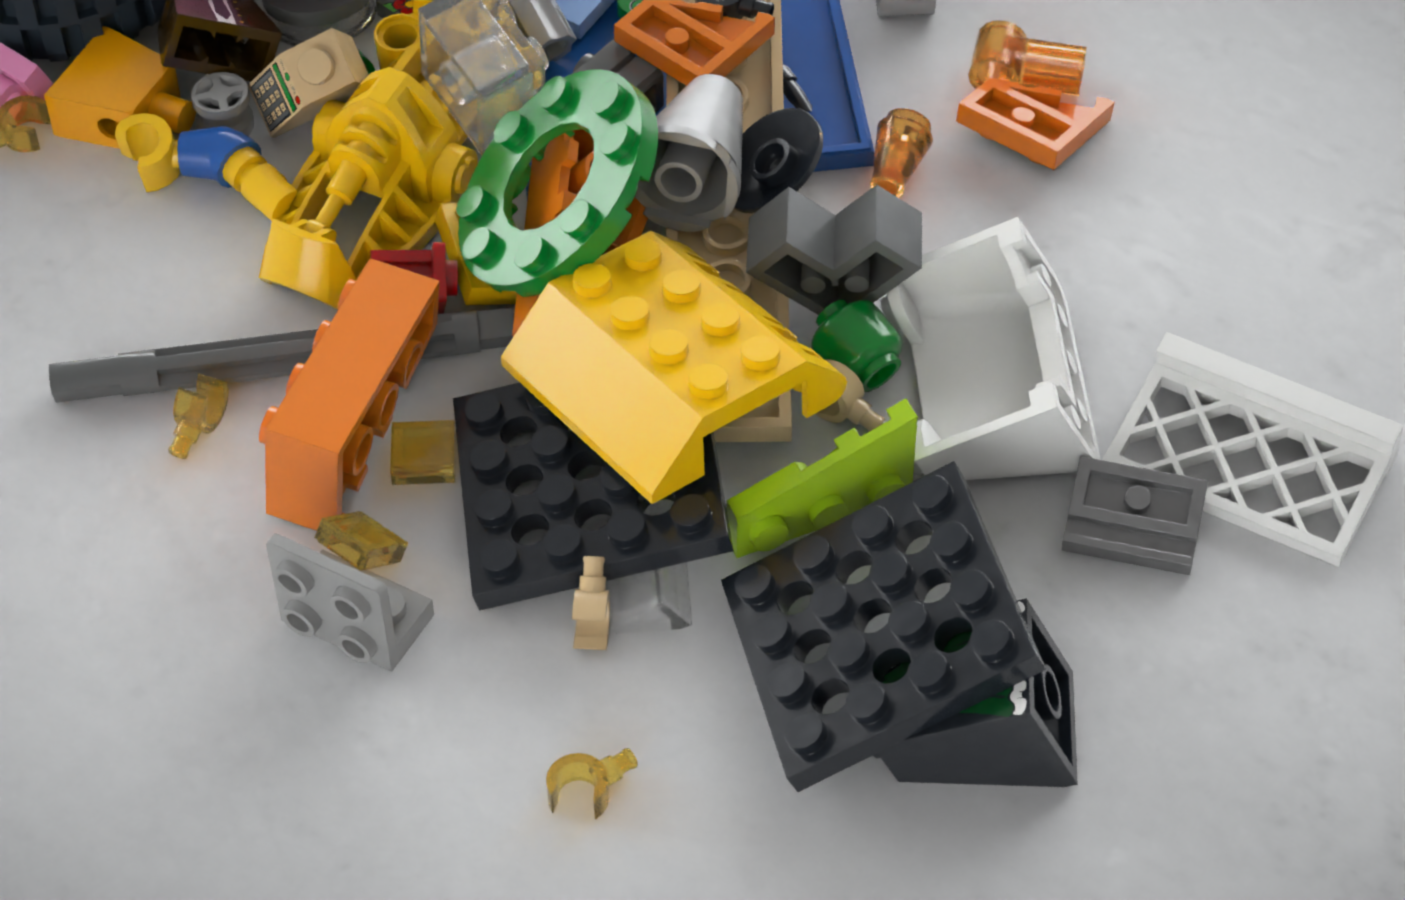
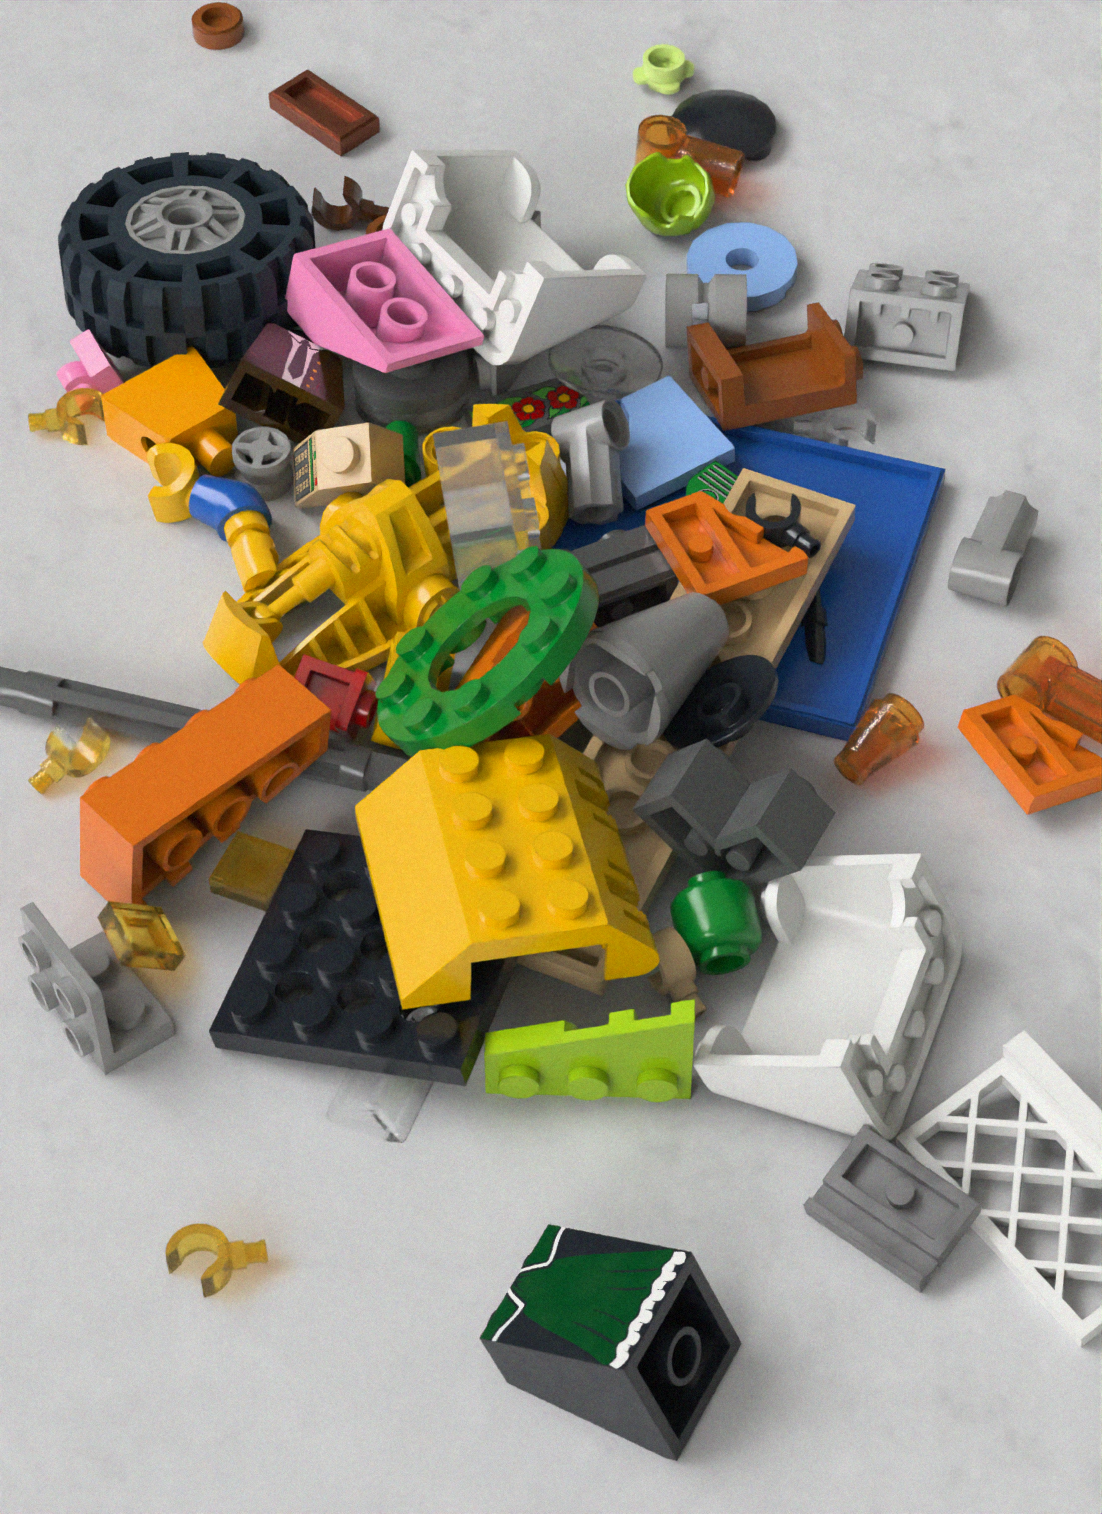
camera: 25 degrees right, 0 degrees up
(592, 607) = (309, 1088): tan piece -> none
(916, 632) = (562, 1299): black piece -> none

